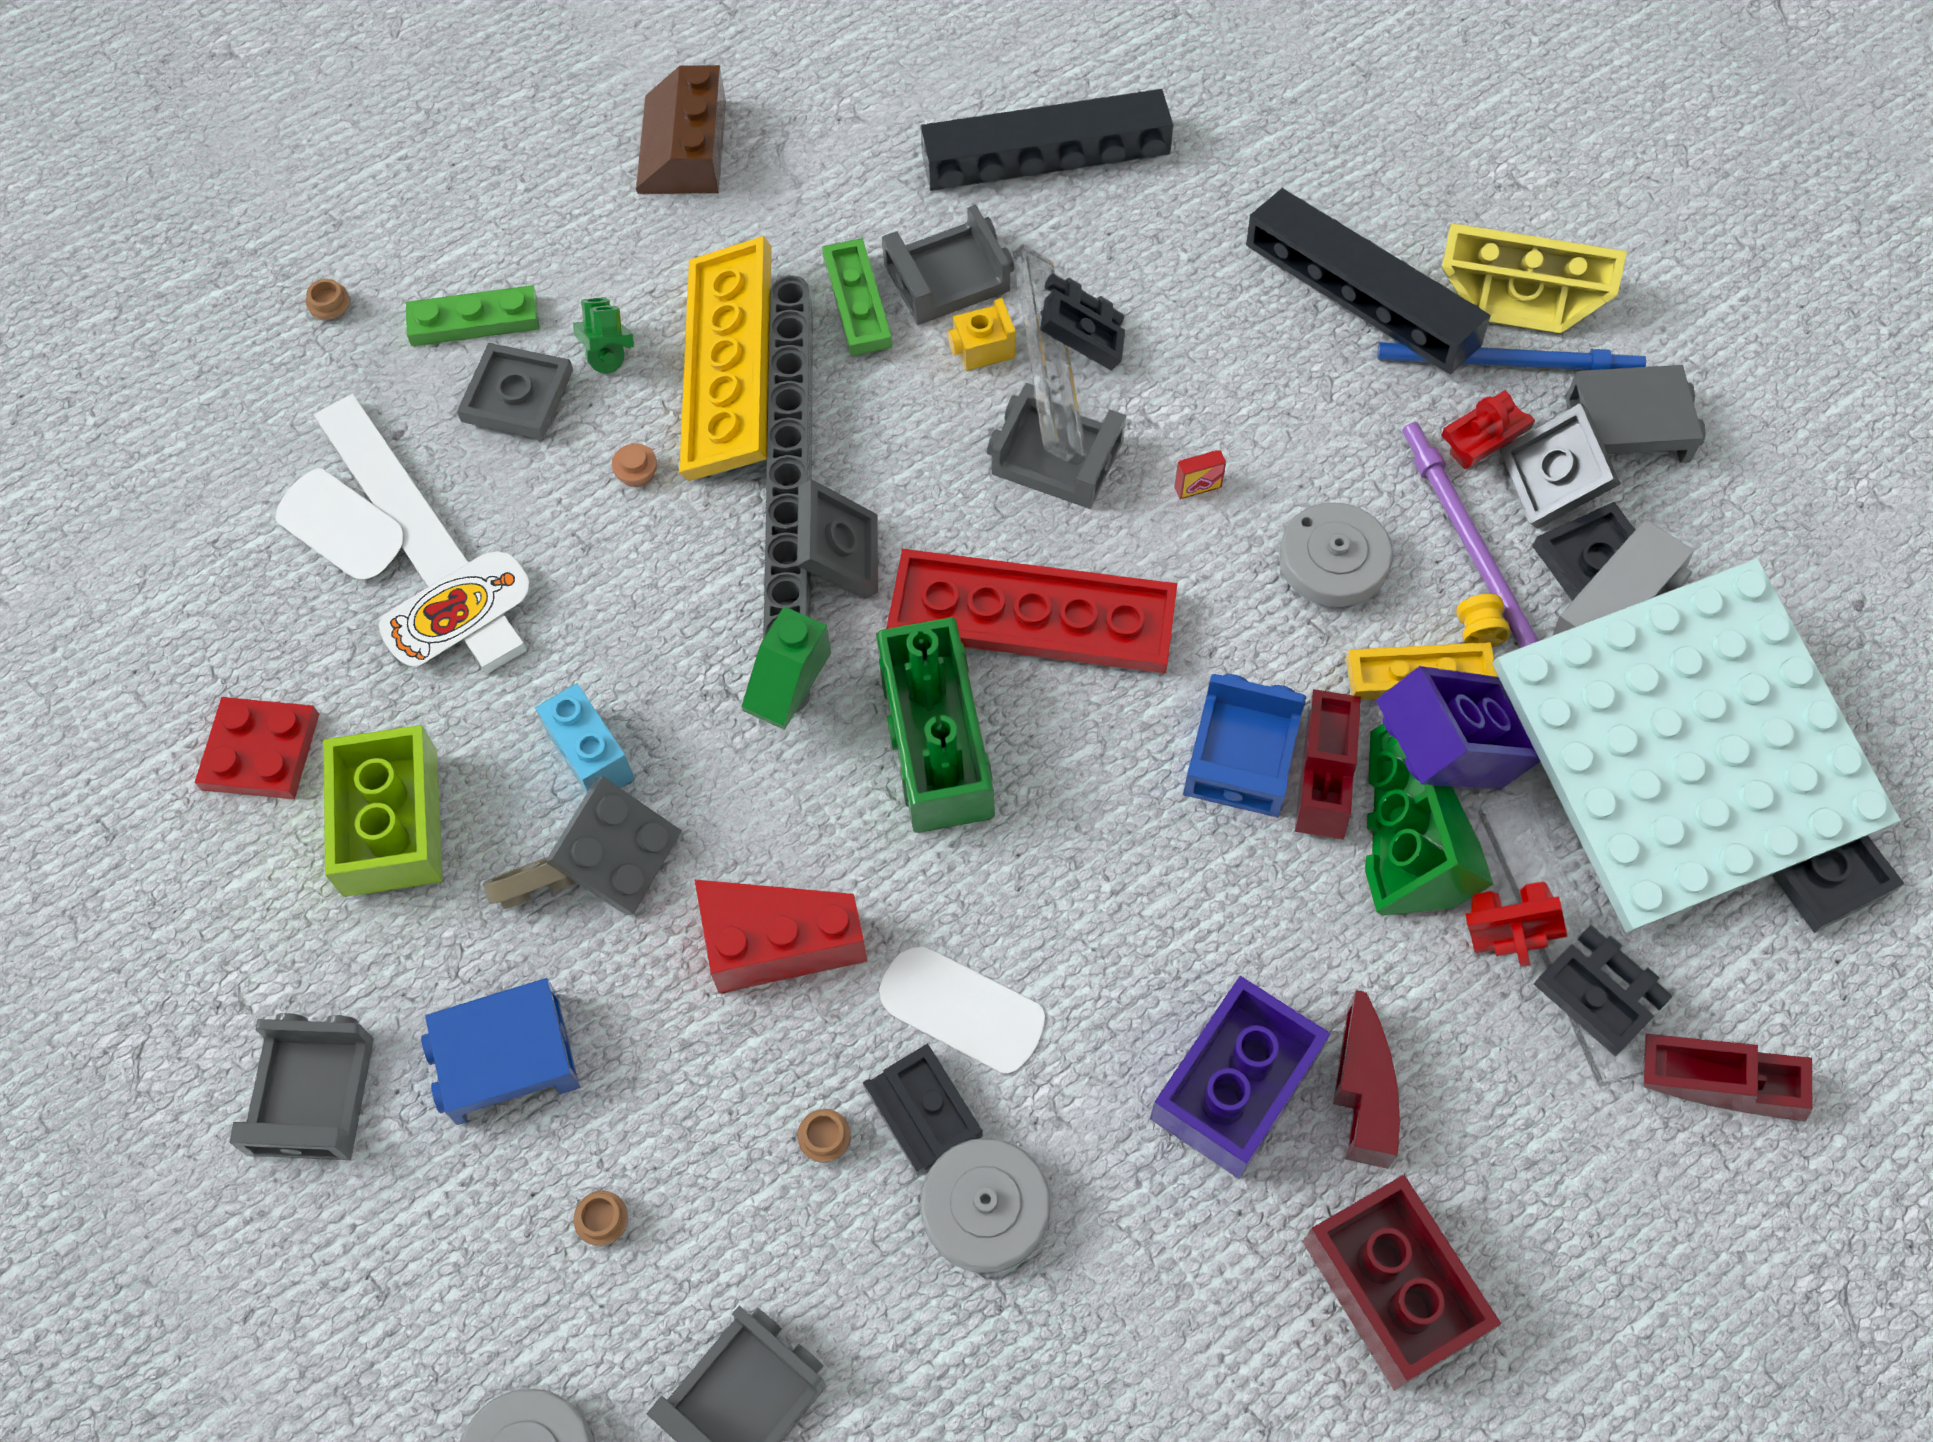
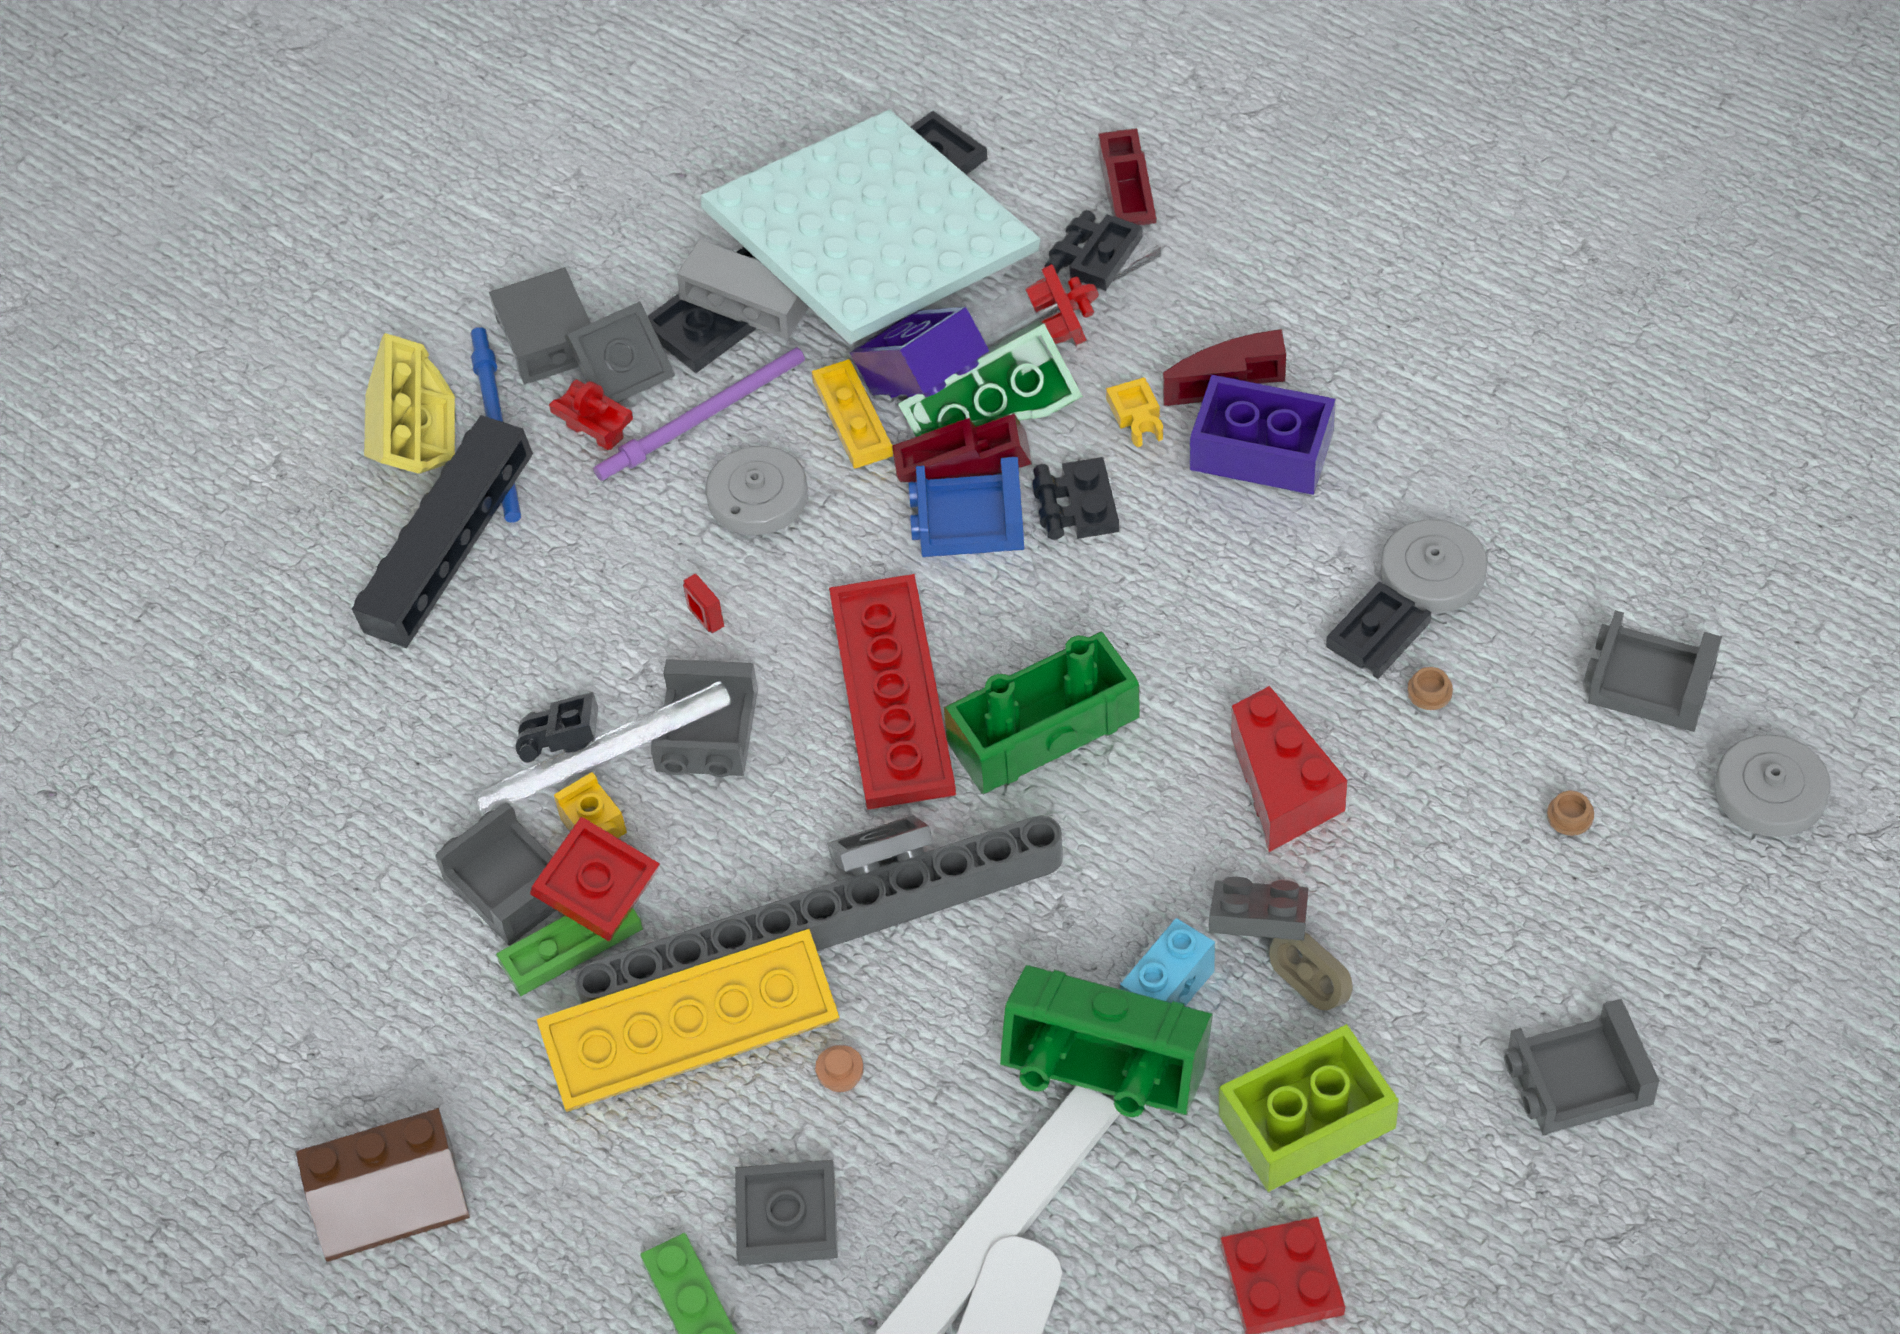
camera: 105 degrees left, 10 degrees down
(453, 607) = (1066, 1156): sticker -> none
(498, 1049) = (1479, 928): blue panel -> none
(527, 656) = (1104, 1041): none -> green piece
(602, 334) = (699, 1140): green hips -> none
(786, 667) = (1044, 813): green slope -> none
(889, 304) = (595, 879): none -> red plate
(962, 1008) = (1279, 639): white sticker -> none
(1046, 139) = (318, 838): black brick -> none
(1228, 875) = (1089, 497): none -> black plate
(1343, 961) = (1137, 407): none -> yellow plate
(1400, 1282) = (1369, 314): dark red brick -> none
(1483, 620) = (790, 382): yellow wheel -> none

